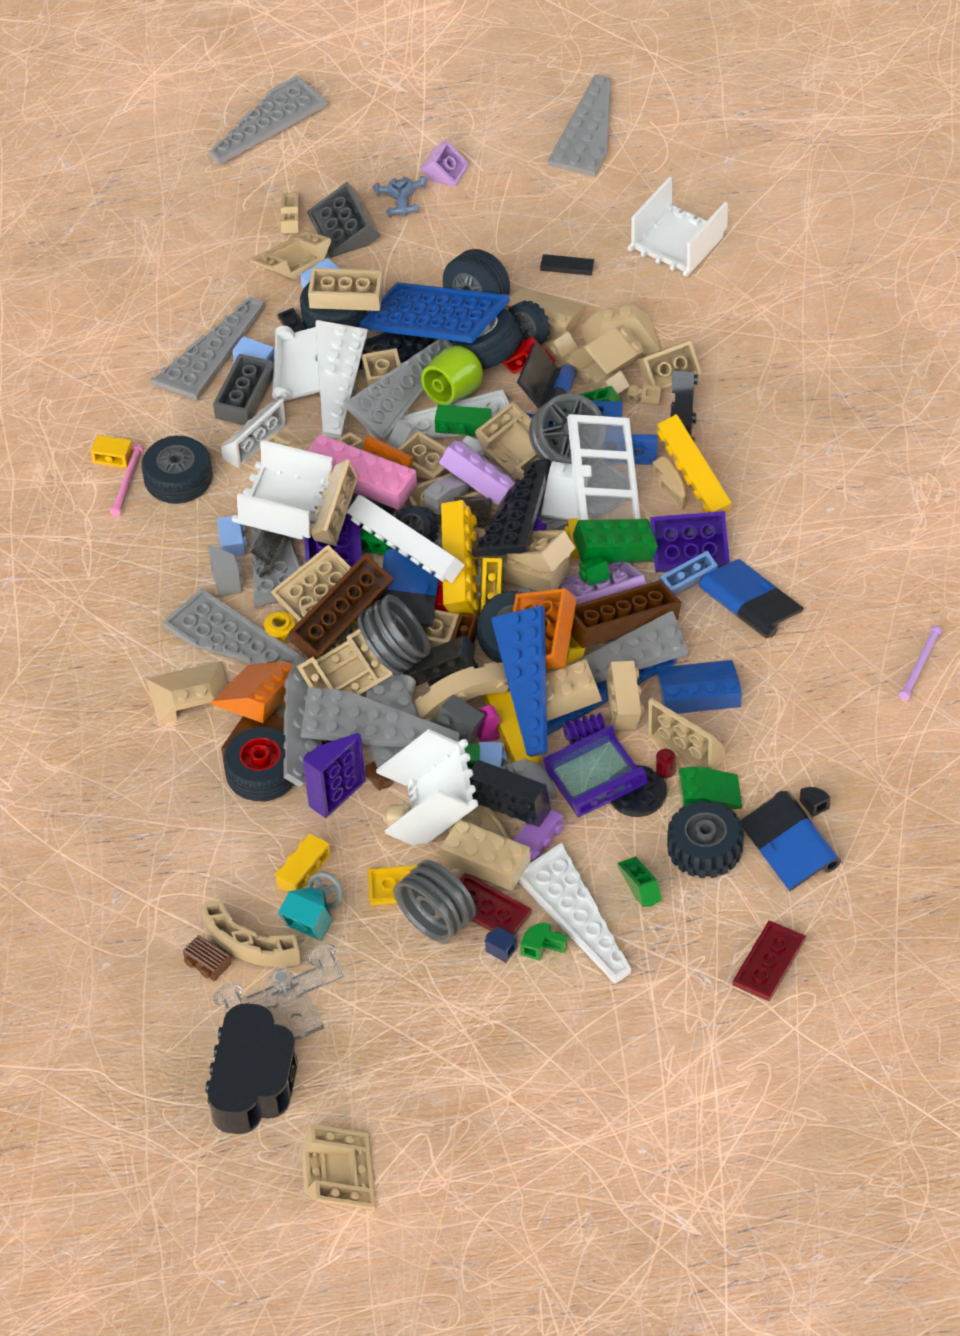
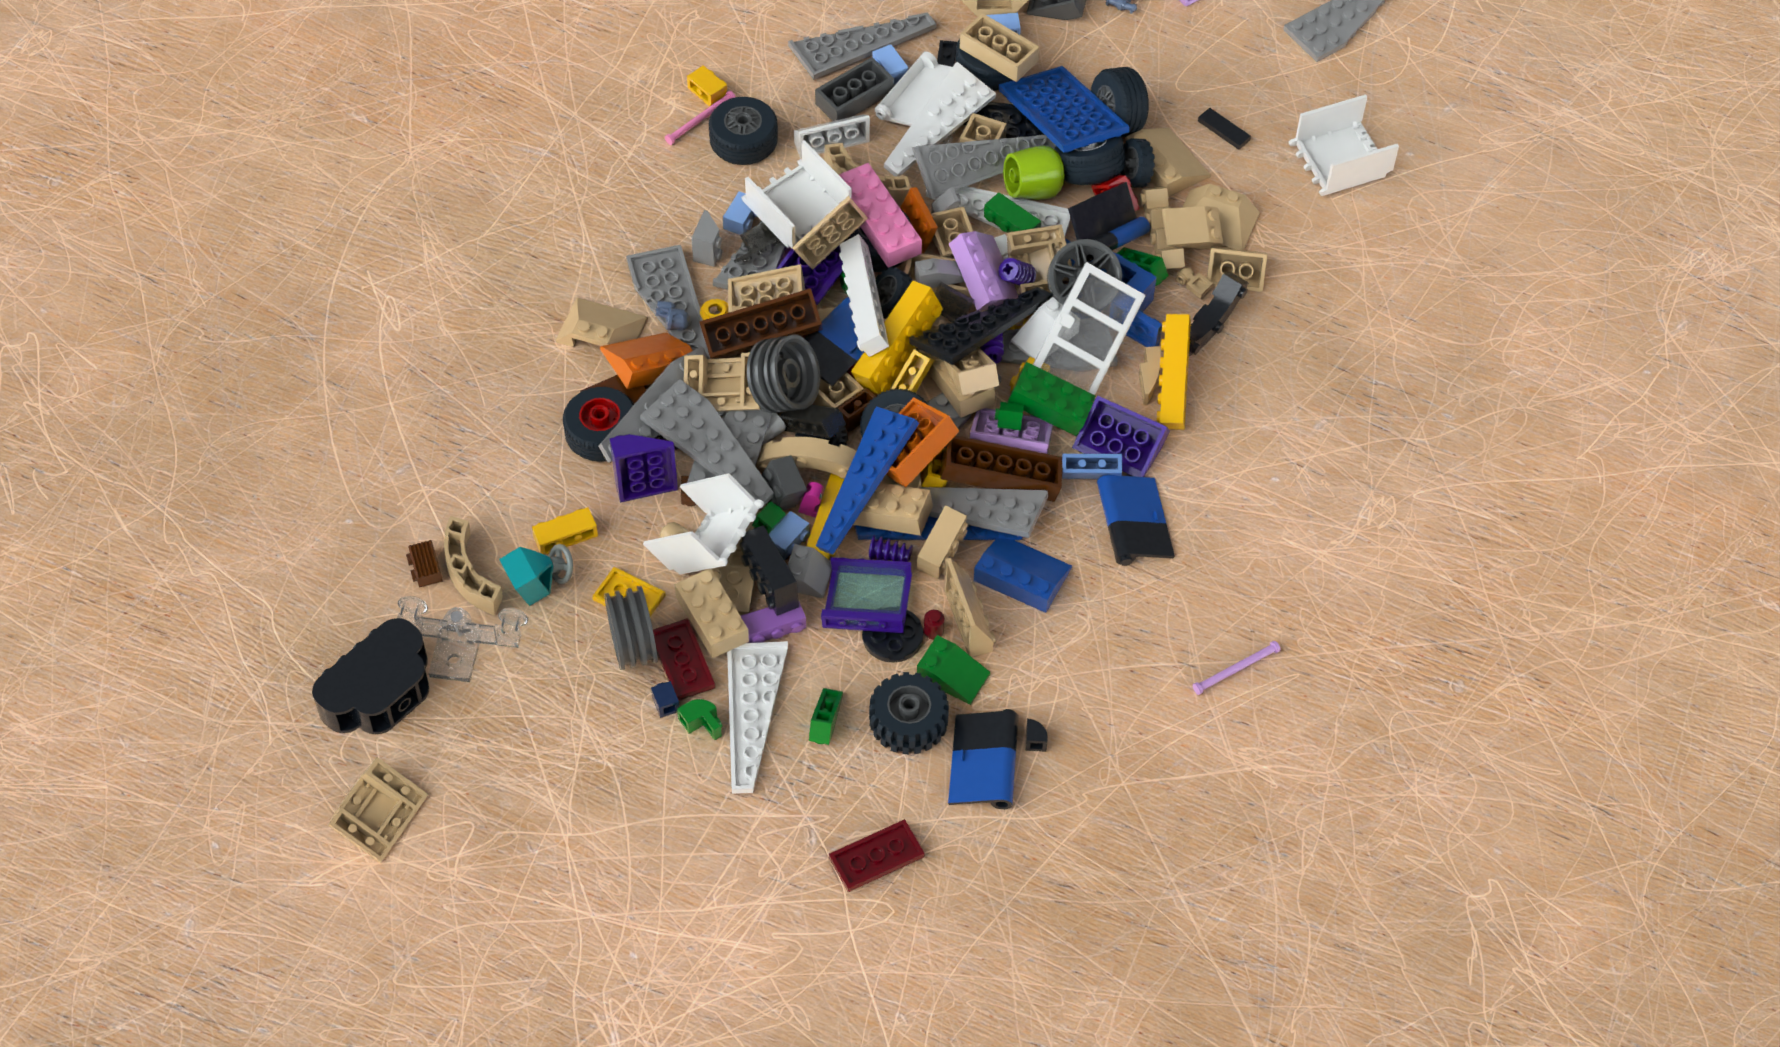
camera: 30 degrees right, 5 degrees up
(252, 646) = (675, 318): none -> sand blue piece
(507, 453) = (1017, 271): none -> dark purple piece

